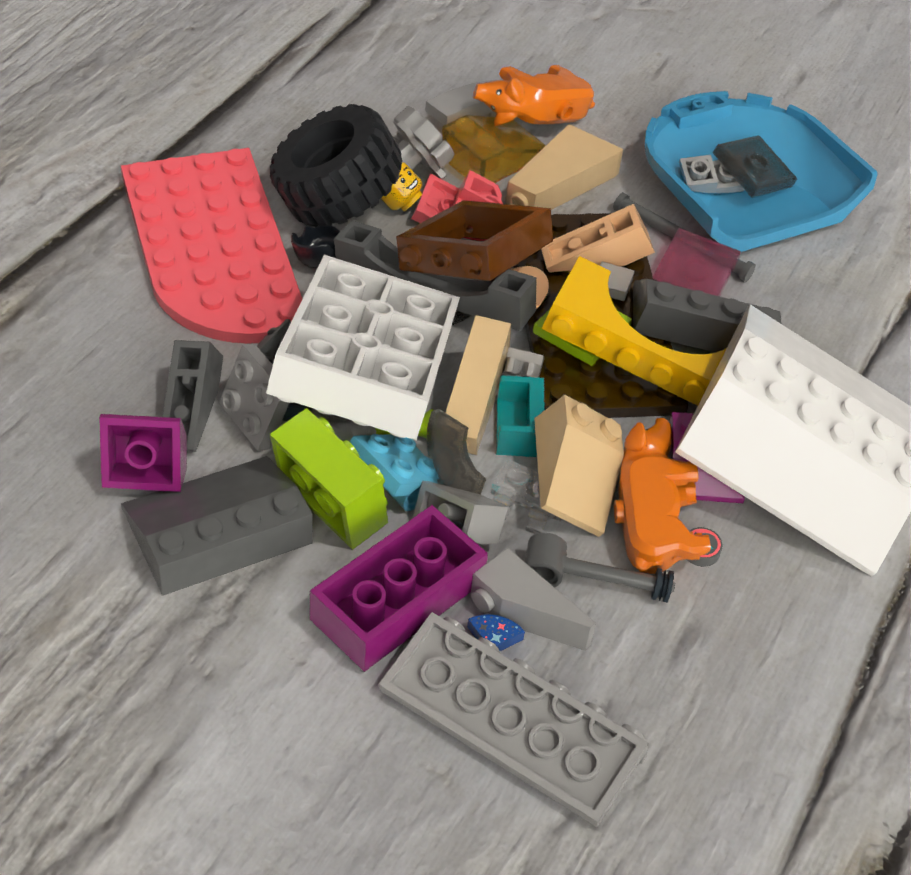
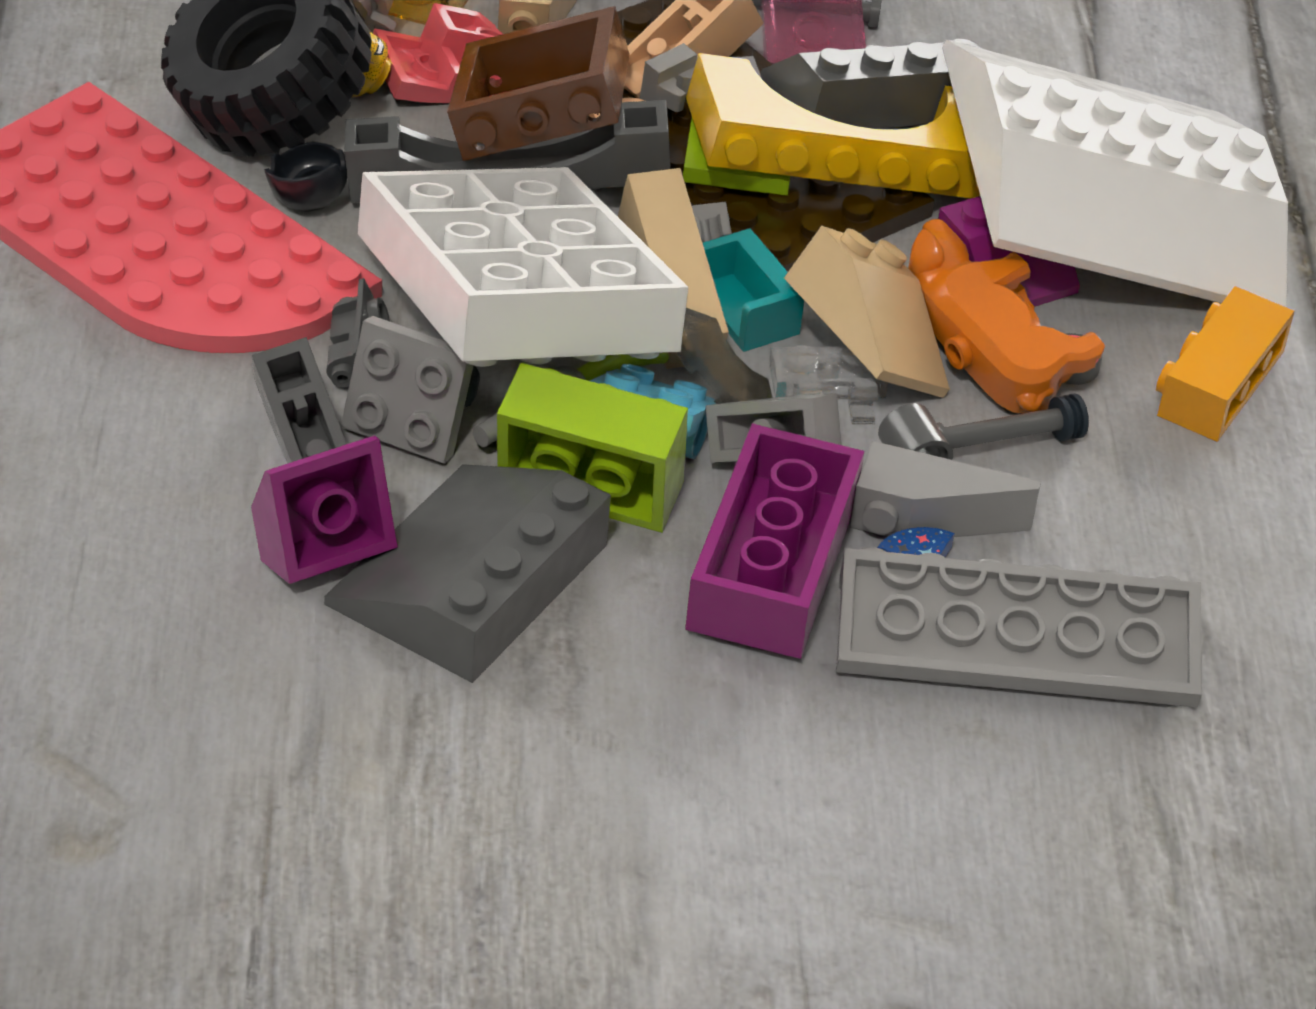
camera: 30 degrees left, 5 degrees down
(562, 263) = (669, 77): none -> light grey tile
(797, 593) = (1223, 363): none -> light orange brick

